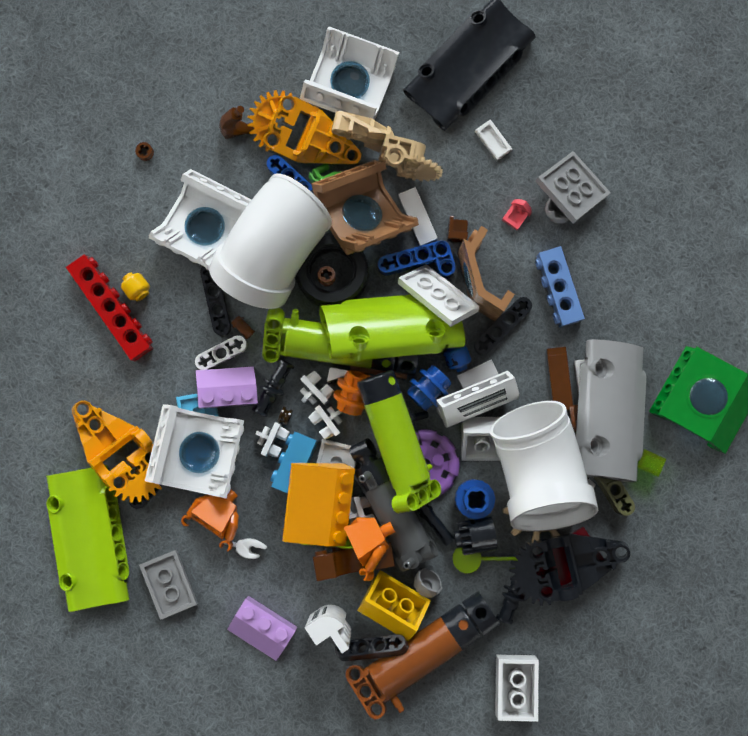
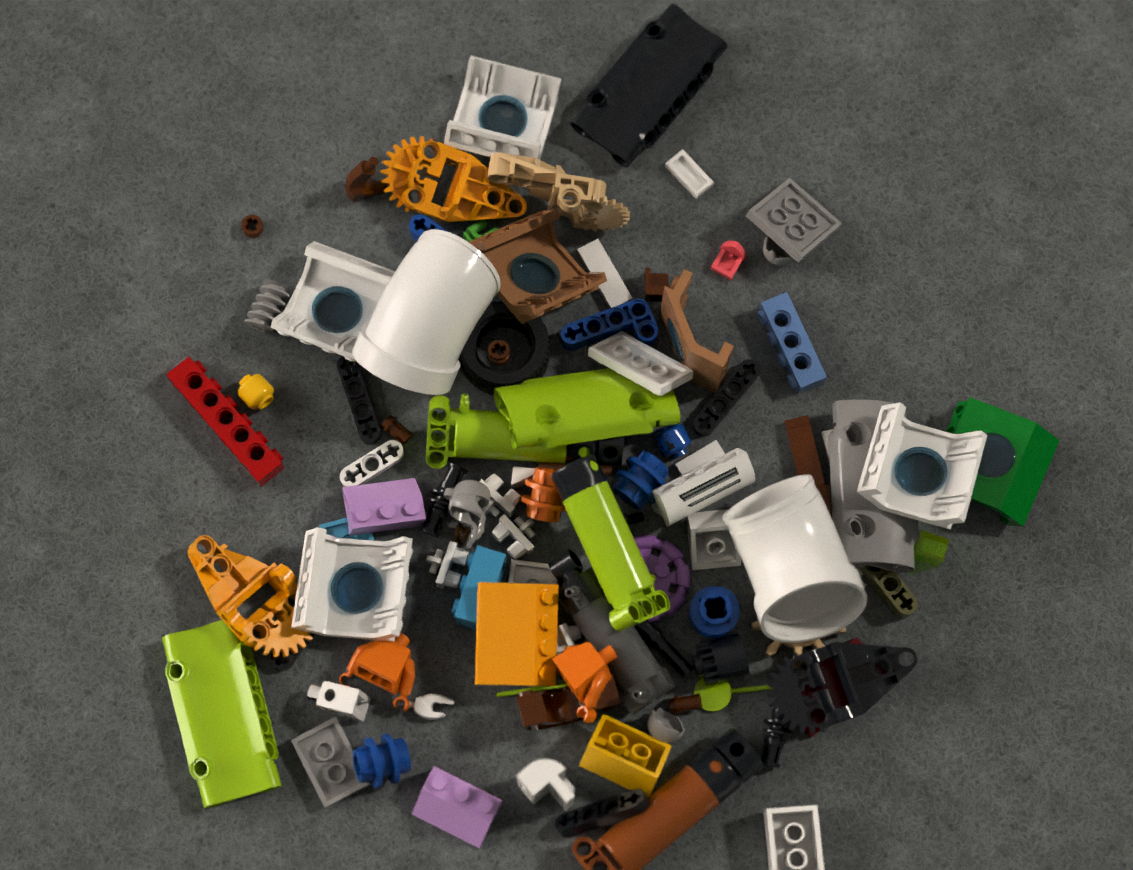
camera: 10 degrees left, 10 degrees down
(150, 218) = (266, 306): none -> light grey piece
(179, 538) = (340, 700): none -> white torso
(206, 590) = (381, 760): none -> blue piece
(288, 394) = (466, 498): none -> light grey hair
(445, 566) = (685, 703): none -> reddish brown pin
(653, 405) = (920, 469): none -> white panel

